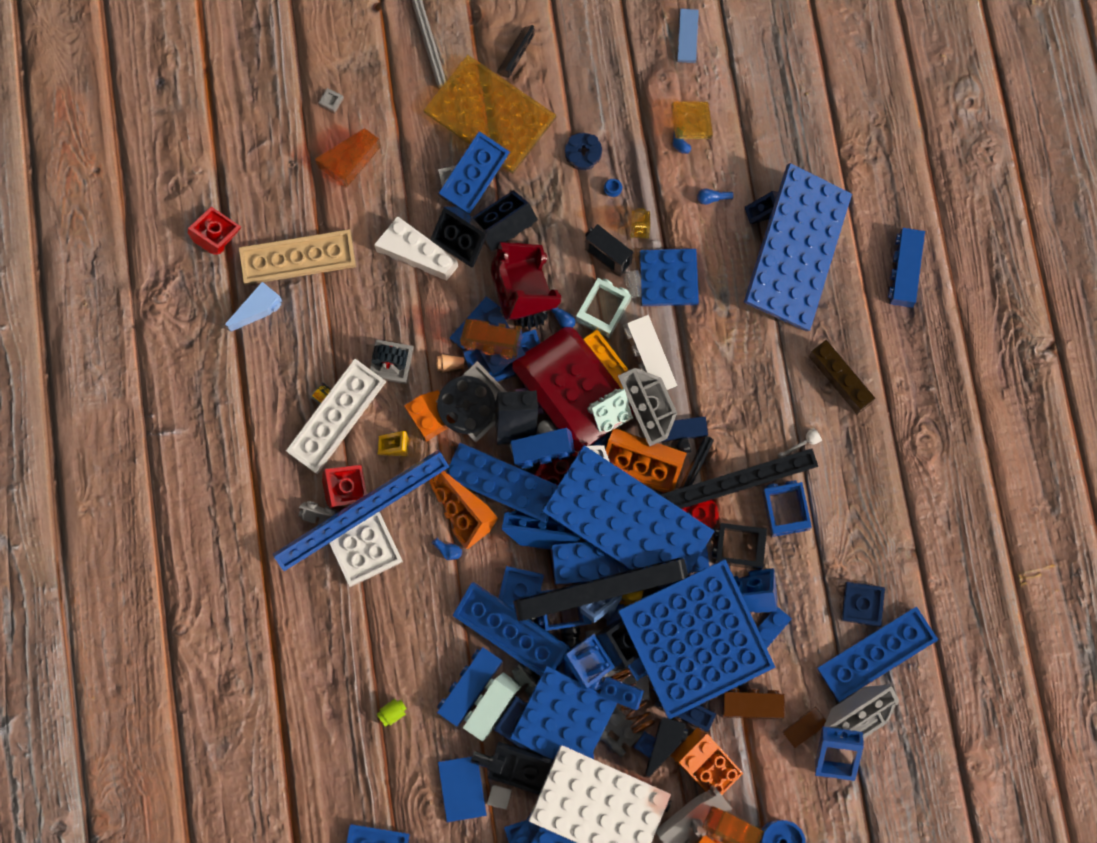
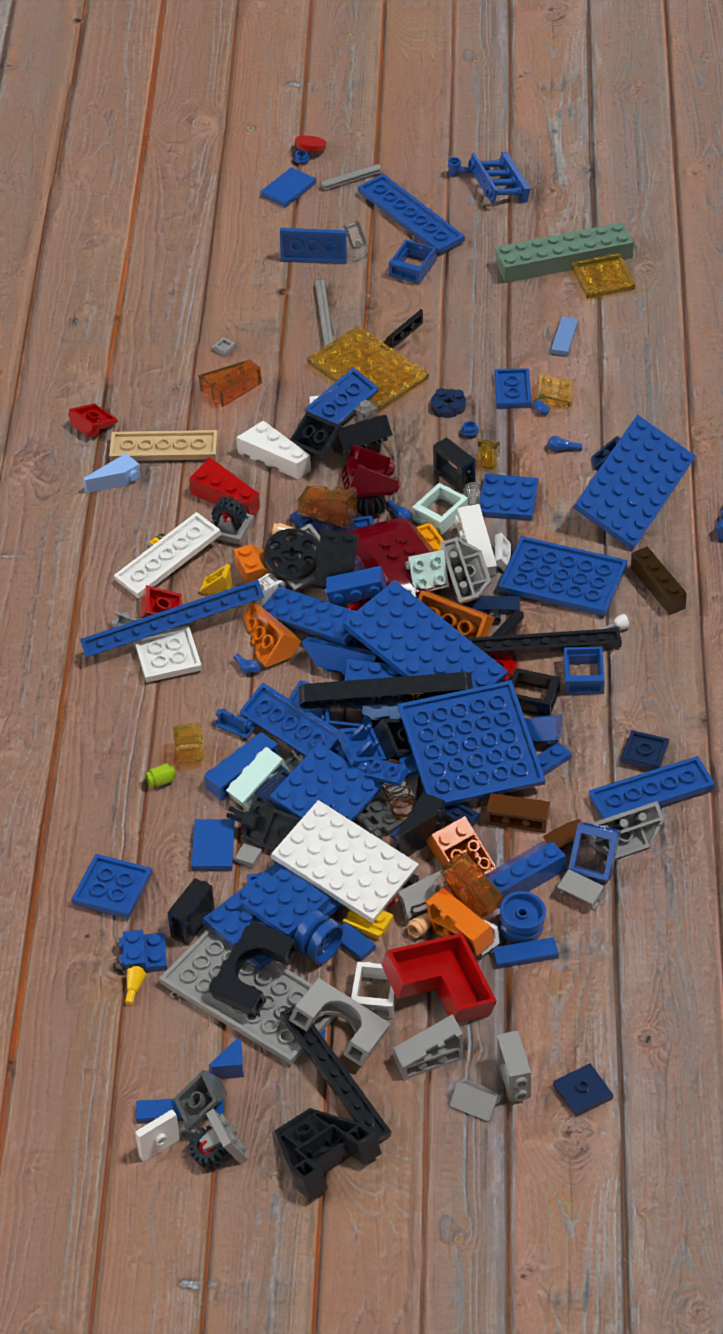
camera: 10 degrees right, 30 degrees down
(372, 312) = (215, 481): none -> red wedge
(412, 672) = (188, 743): none -> clear yellow brick
(449, 441) = (269, 585): none -> white piece
(451, 630) = (234, 724): none -> blue hinge
(502, 184) = (365, 410): none -> clear brick
(646, 120) = (512, 388): none -> blue tile
(678, 360) = (502, 551): none -> white plate
(744, 382) = (563, 575): none -> blue plate
(768, 778) = (528, 869): none -> blue slope
(831, 794) = (582, 888): none -> light grey hinge

